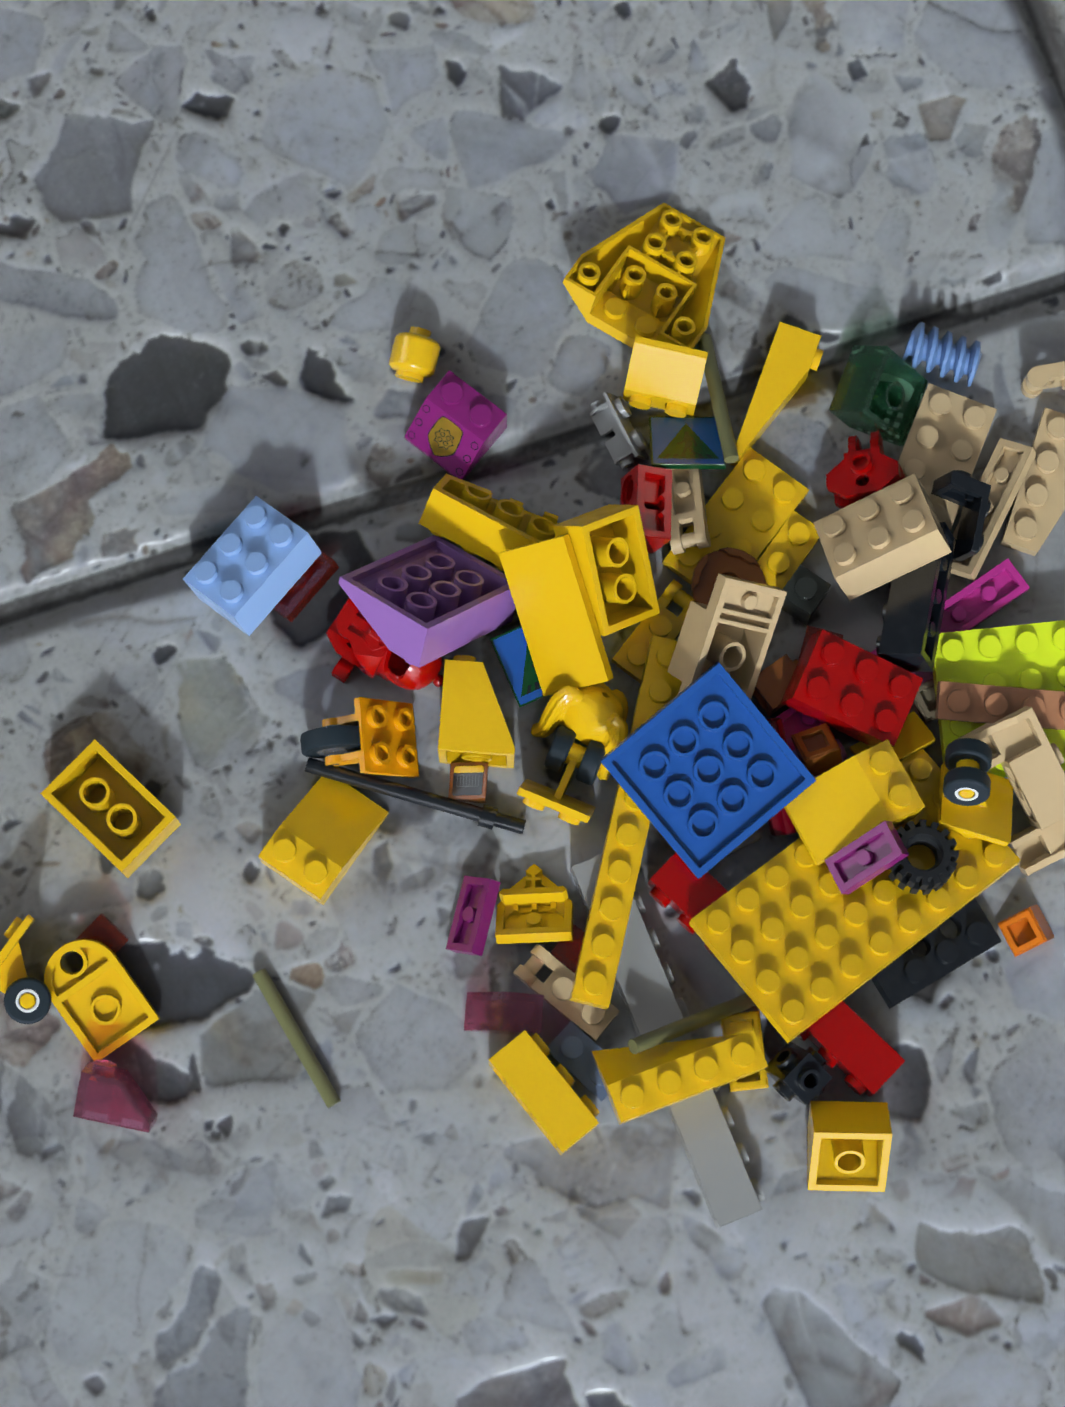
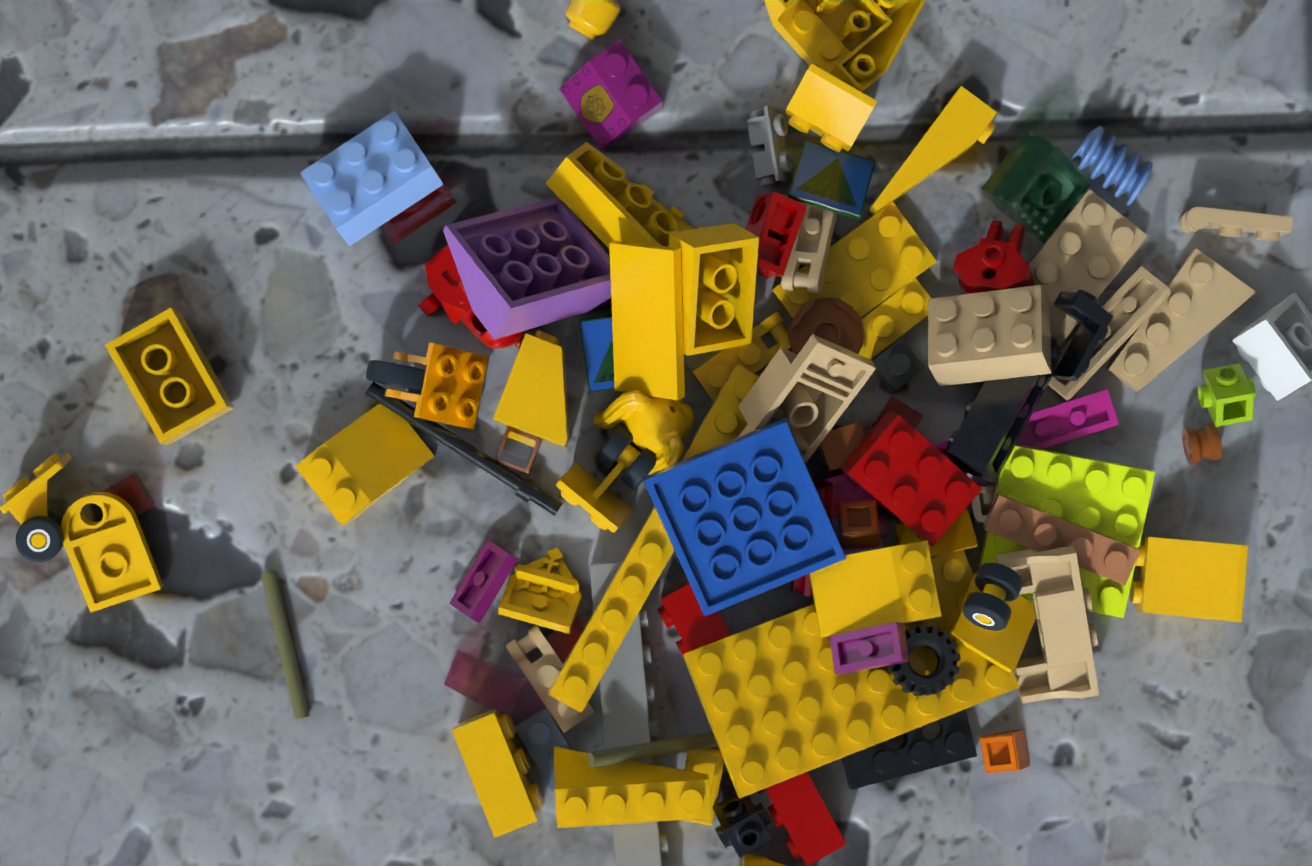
camera: 20 degrees right, 10 degrees up
(113, 1098) = (97, 652): clear pink slope -> none
(718, 401) = (875, 146): olive bar -> none

